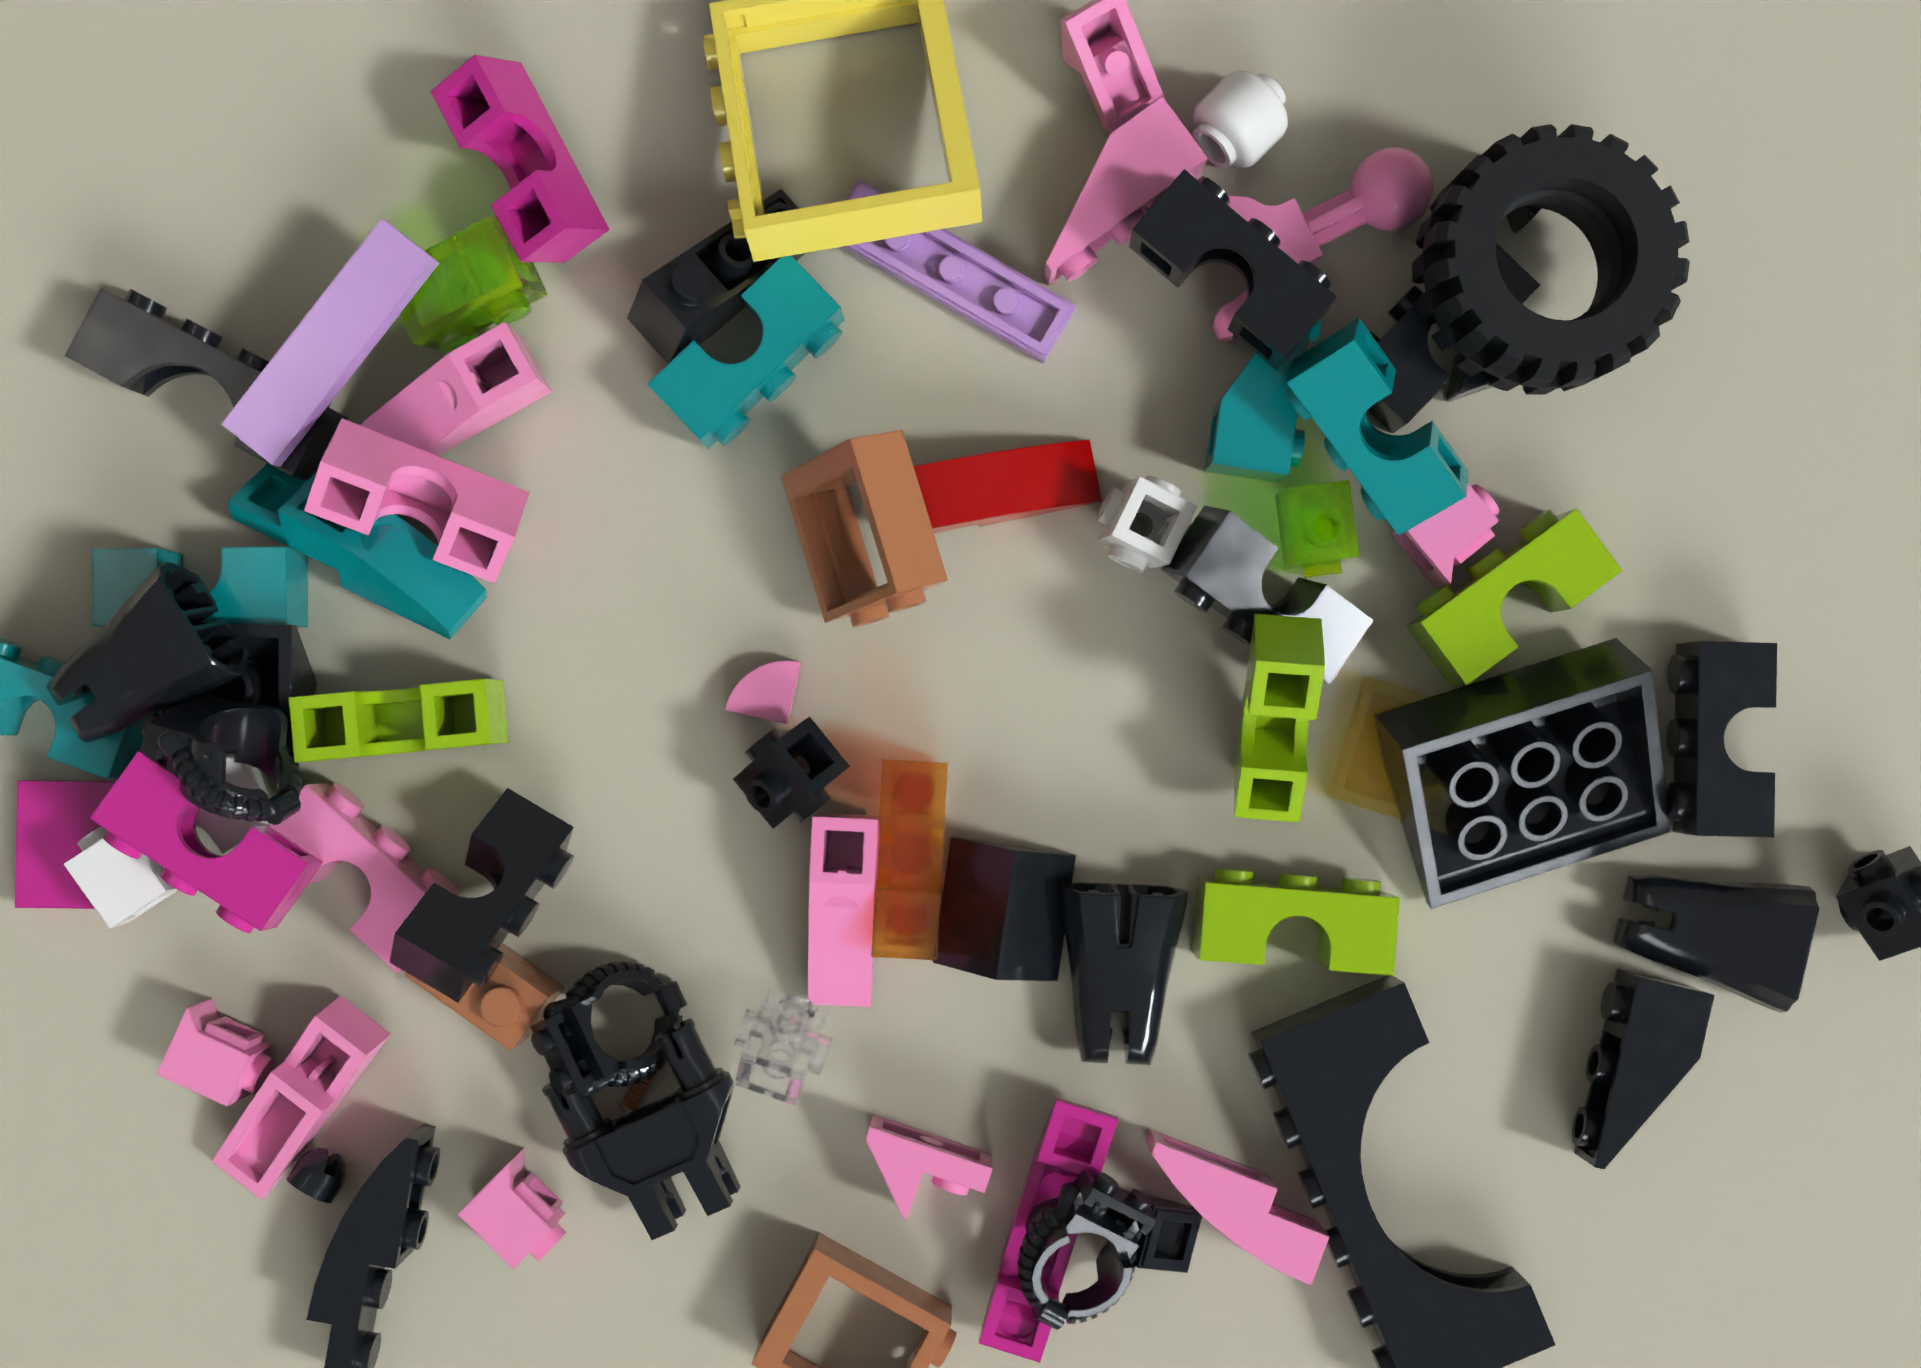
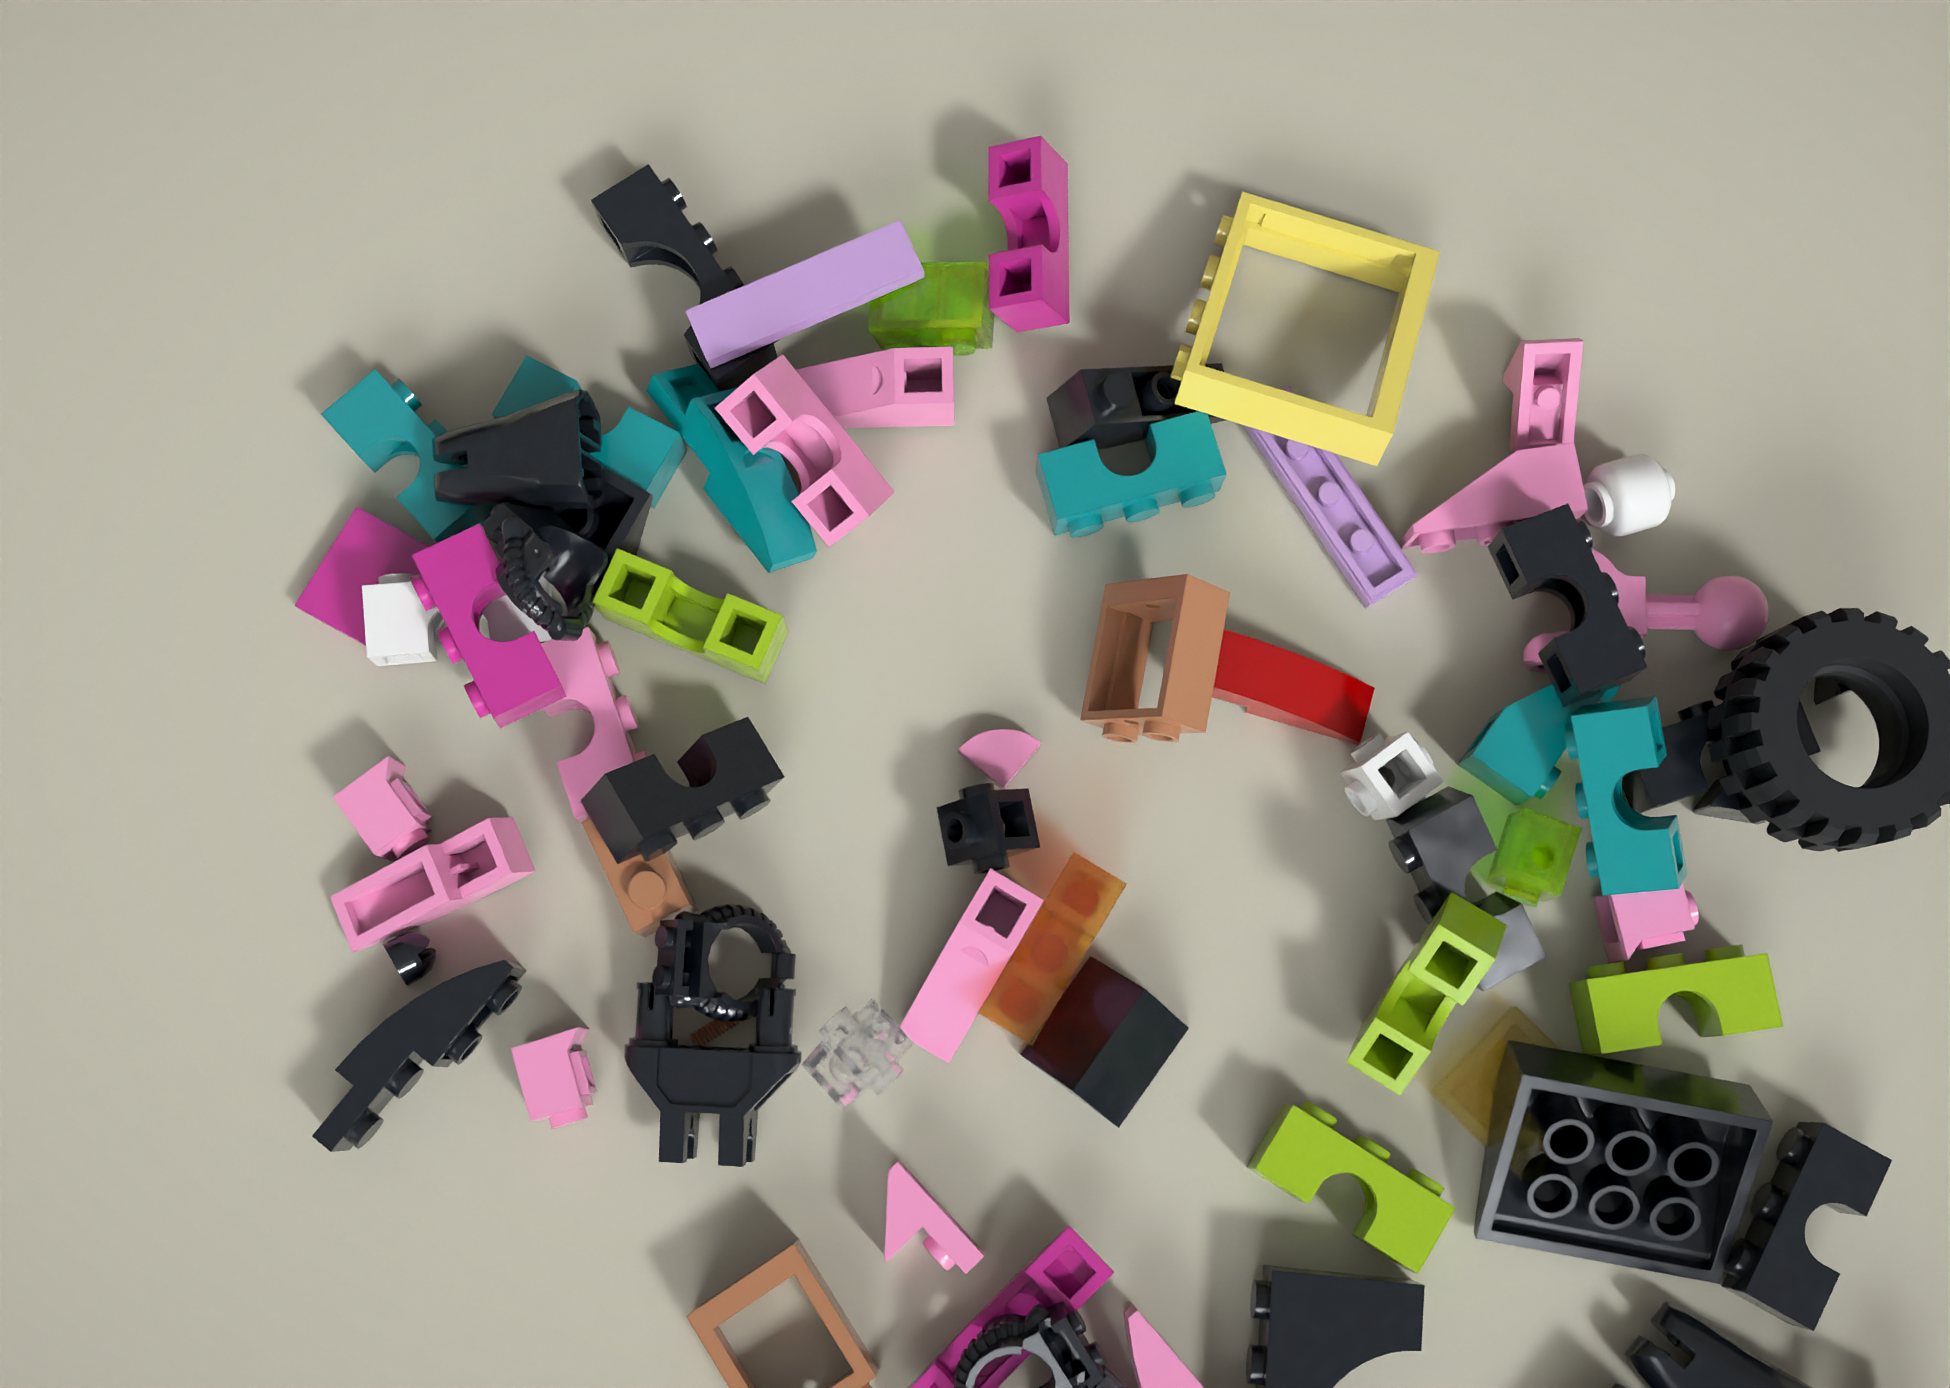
camera: 25 degrees right, 10 degrees down
(1120, 961) = (1181, 1141): black piece -> none

